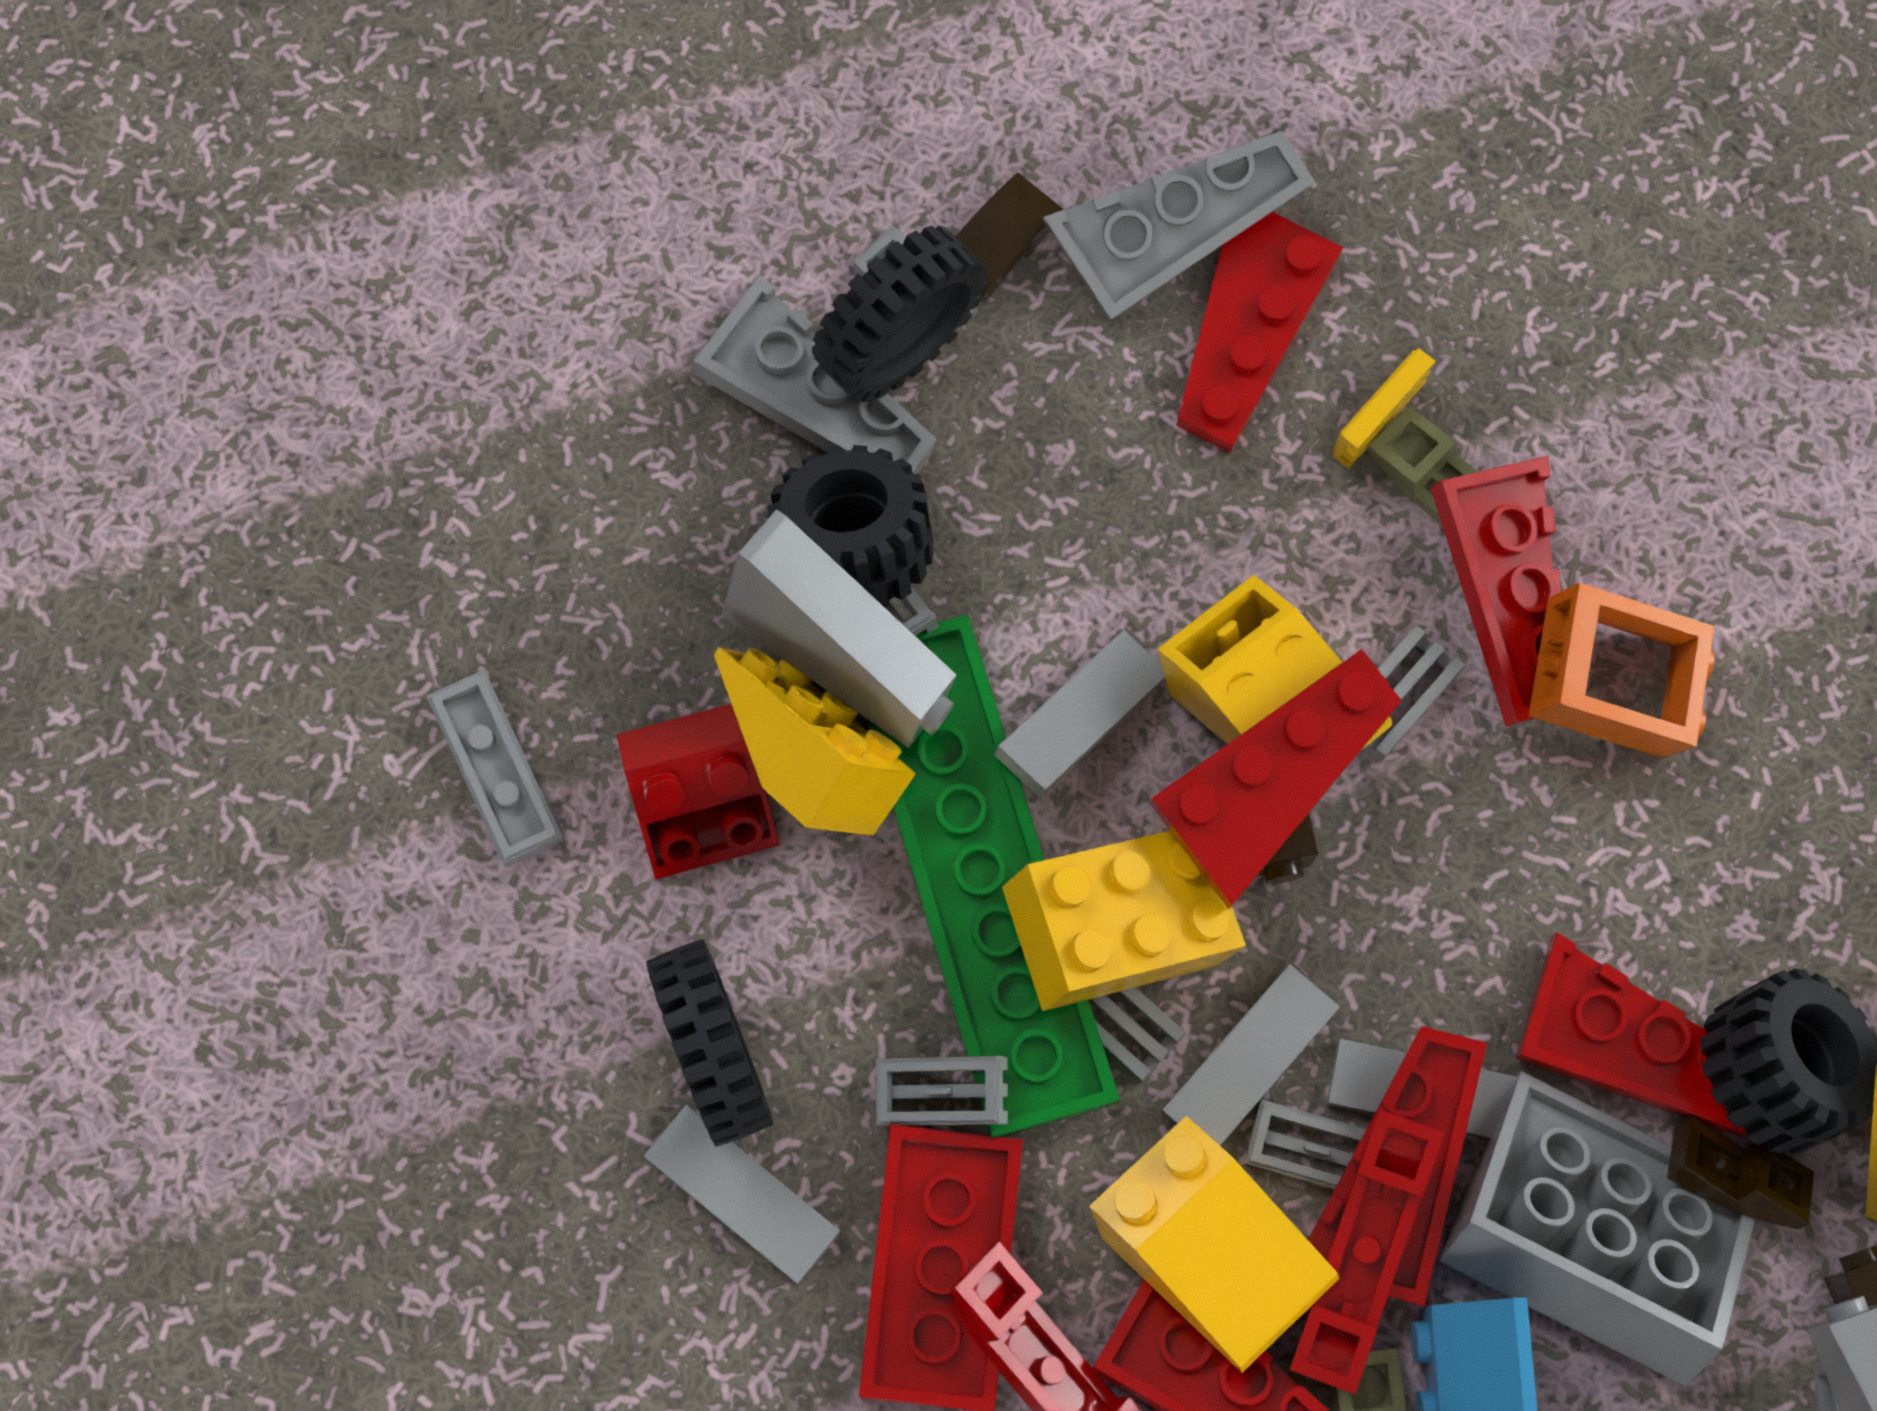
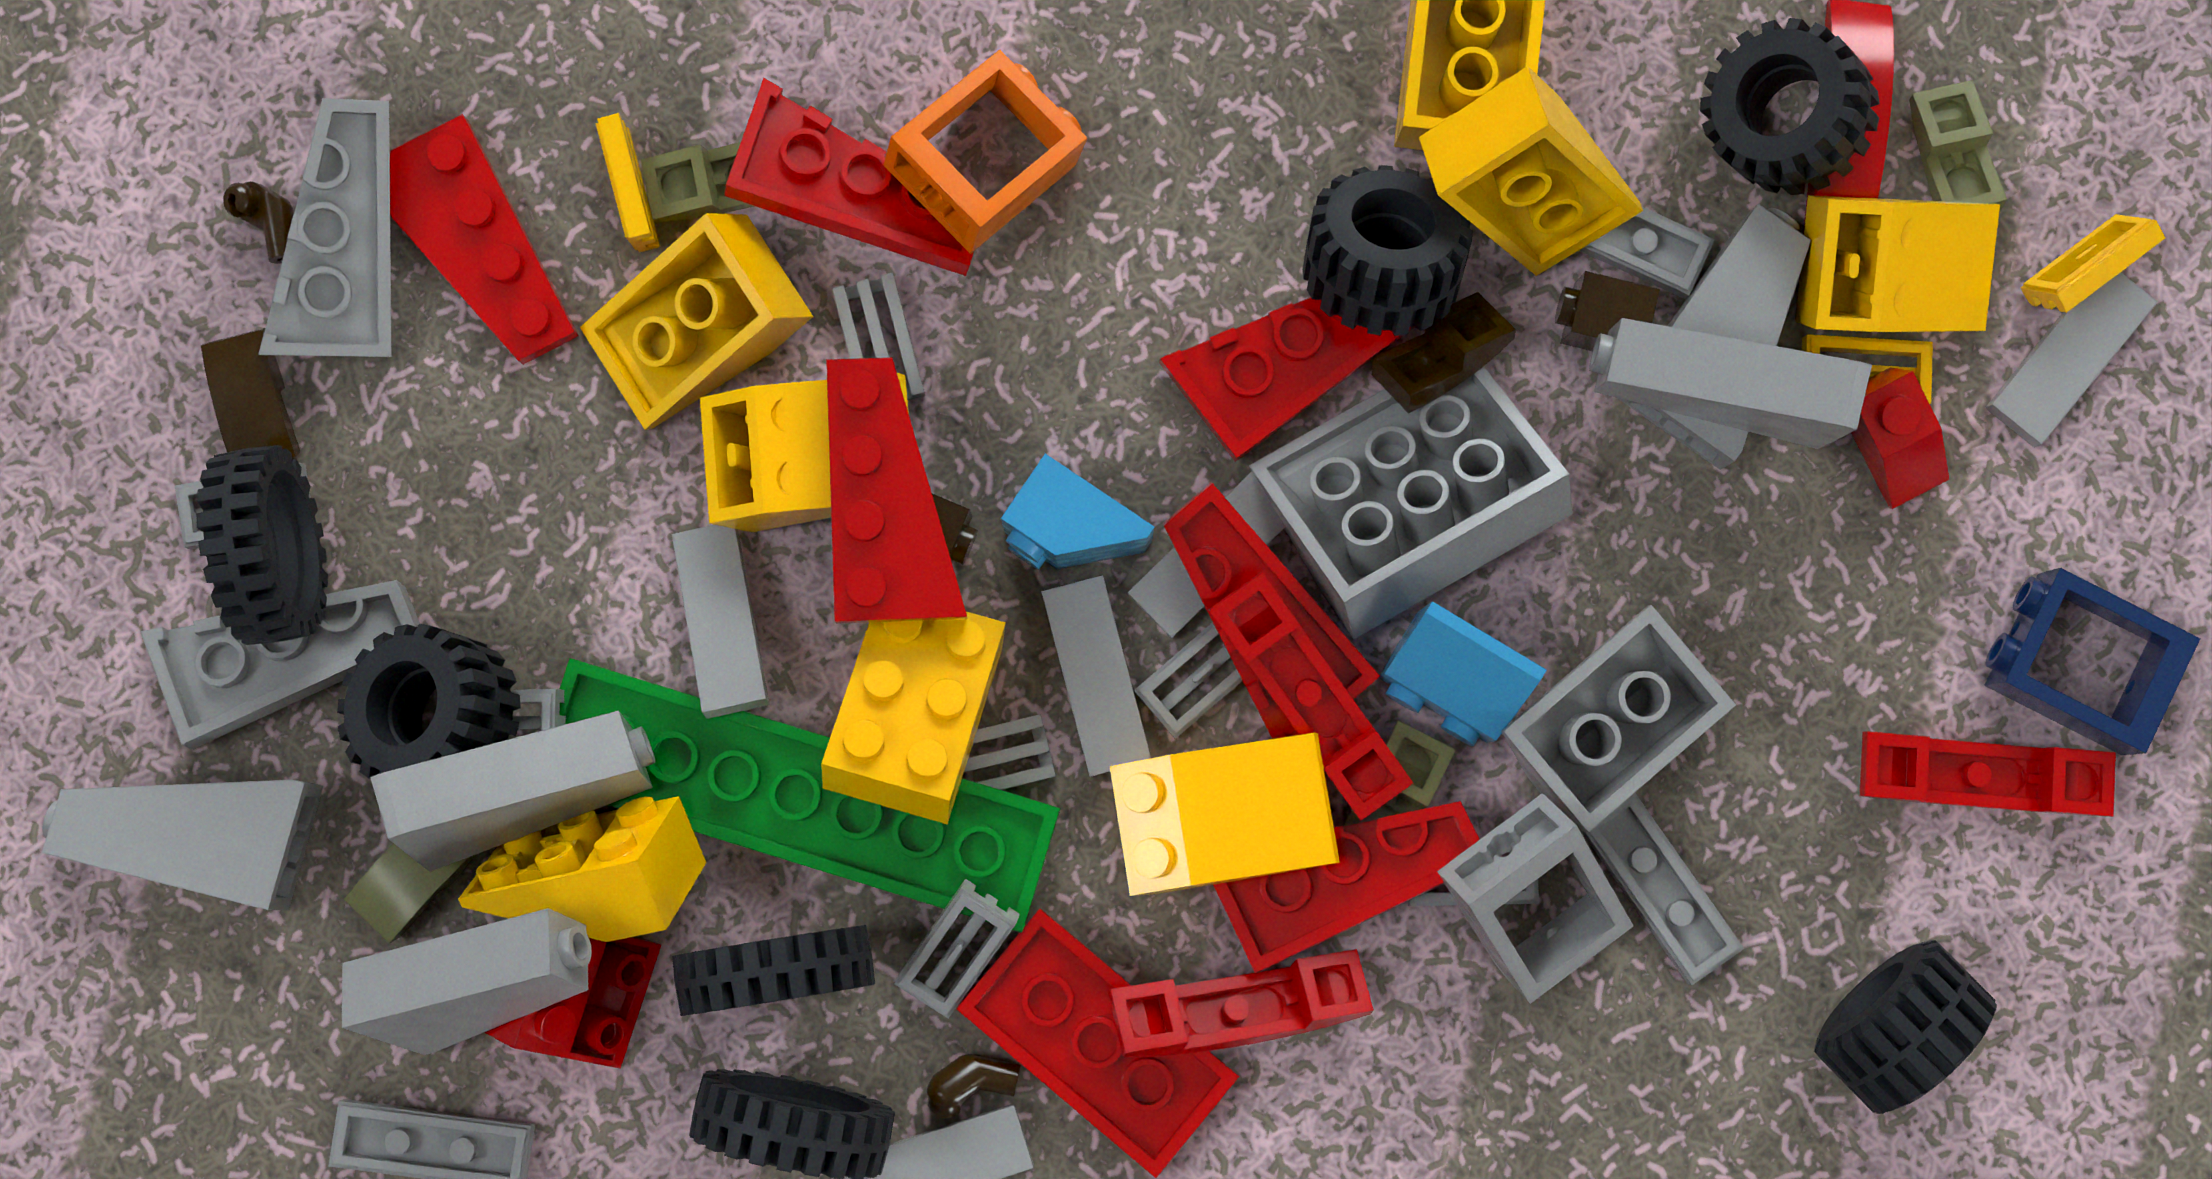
camera: 55 degrees left, 10 degrees up
(632, 426) = (203, 837): none -> light grey slope
(656, 697) = (465, 981): none -> light grey slope
(690, 605) = (399, 890): none -> olive slope
(828, 942) = (773, 970): none -> black tyre
(835, 1173) = (967, 1076): none -> dark brown arm
(1156, 149) = (263, 210): none -> dark brown arm
(1314, 532) = (695, 317): none -> yellow slope
(1368, 946) = (1070, 521): none -> dark azure slope

